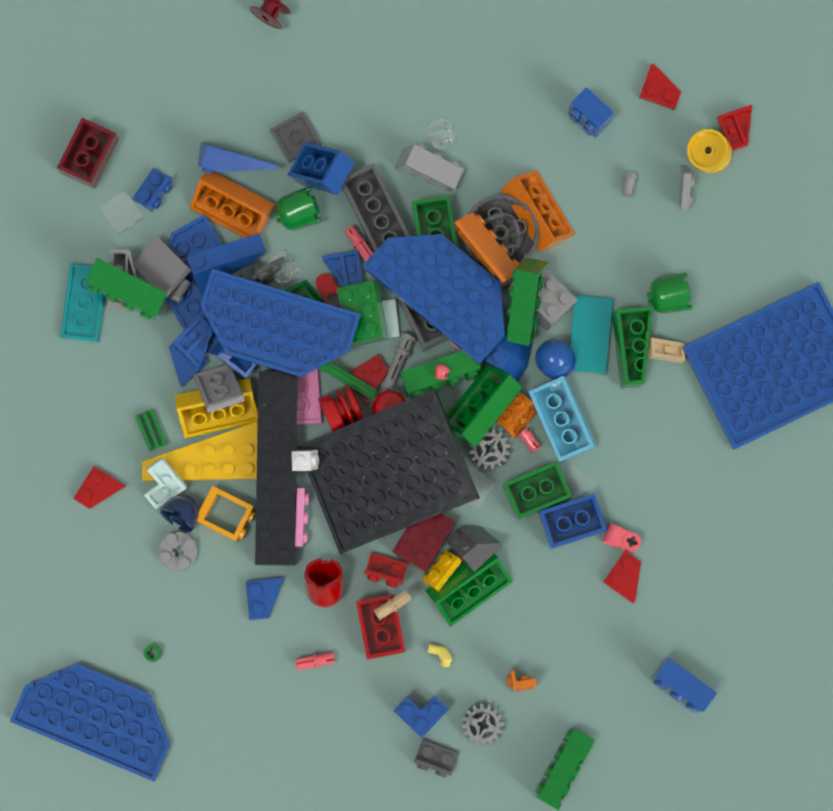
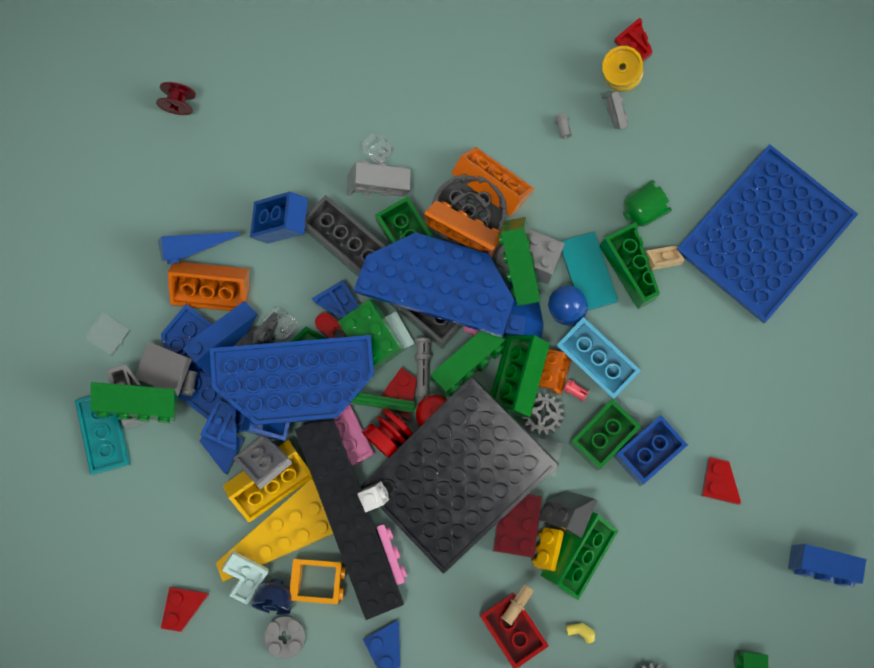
camera: 20 degrees left, 5 degrees down
(87, 153) = (53, 291): dark red brick -> none
(145, 415) = (201, 516): green tile -> none
(152, 190) = (129, 301): blue bracket -> none
(292, 135) = (240, 201): dark grey tile -> none
(297, 210) = (272, 265): green cylinder -> none
(324, 582) = (440, 609): red cylinder -> none
(359, 243) = (341, 273): coral axle -> none
(385, 569) = (494, 570): red bracket -> none
(441, 372) = (469, 358): coral hinge -> none
(524, 682) = (671, 629): orange bracket -> none
(590, 113) = (503, 76): blue brick -> none
(617, 537) = (699, 447): coral piece -> none
(659, 89) = (553, 36): red wing -> none

